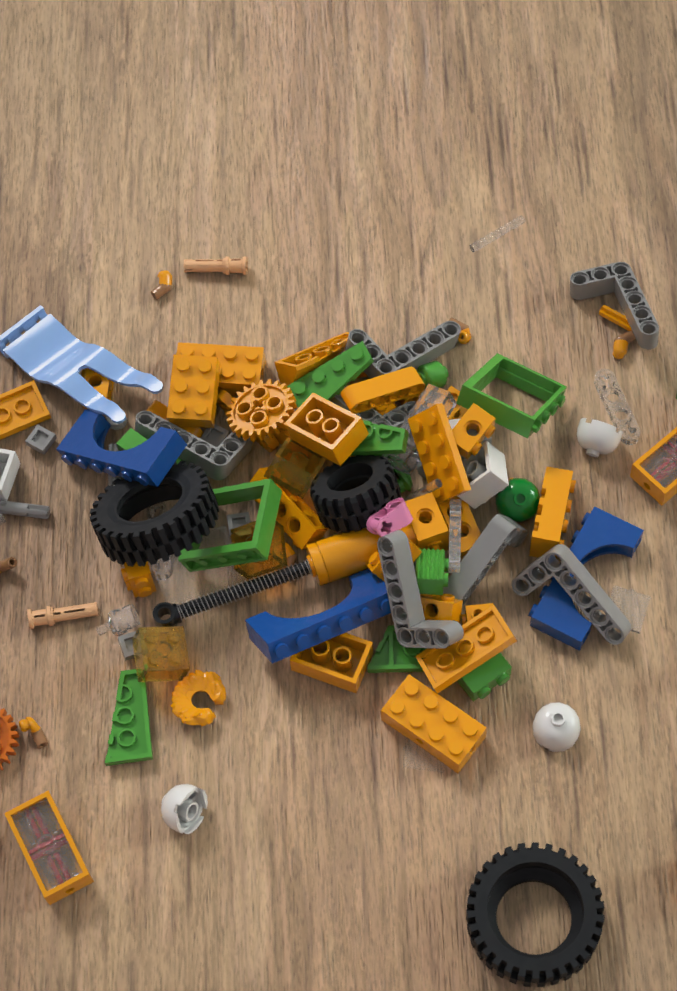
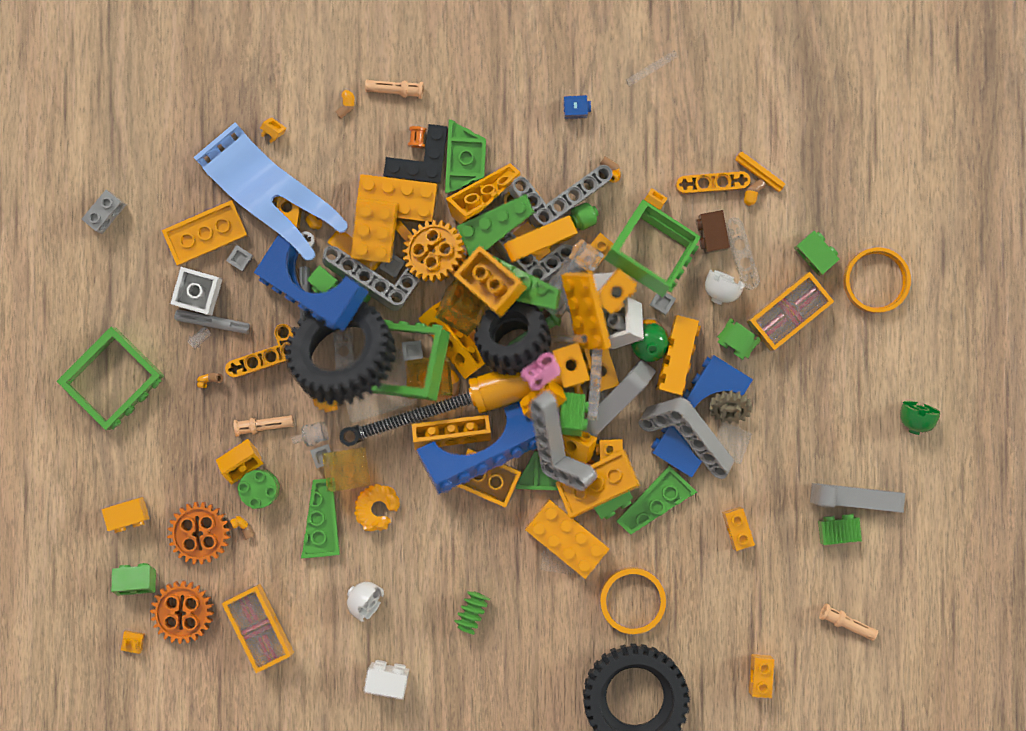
camera: 10 degrees left, 25 degrees up
(32, 653) = (239, 461): none -> light orange brick
(55, 683) = (258, 488): none -> bright green brick
(62, 539) = (261, 356): none -> light orange beam
(82, 310) = (272, 128): none -> light orange tile
(124, 397) = (312, 221): none -> light orange arm
(211, 902) = (387, 679): none -> white brick
(241, 310) = (417, 137): none -> orange bush
(259, 332) = (425, 171): none -> black plate
(288, 602) = (452, 431): none -> light orange brick
(294, 326) = (464, 157): none -> bright green wing
(316, 816) = (471, 612): none -> bright green piece
(416, 271) = (576, 107): none -> blue brick
(511, 354) = (655, 199): none -> light orange tile
(521, 833) = (626, 571): none -> light orange piece
(529, 459) = (662, 304): none -> light grey plate
(544, 672) = (662, 495): none -> bright green wing
(556, 727) = (665, 543): white cylinder -> none
(575, 335) = (712, 180): none -> light orange beam
(581, 384) = (713, 232): none -> reddish brown brick
(617, 569) = (730, 407): none -> dark tan gear
(621, 280) = (761, 150): light grey beam -> none
(621, 488) = (738, 338): none -> bright green brick
(645, 702) = (738, 528): none -> light orange brick

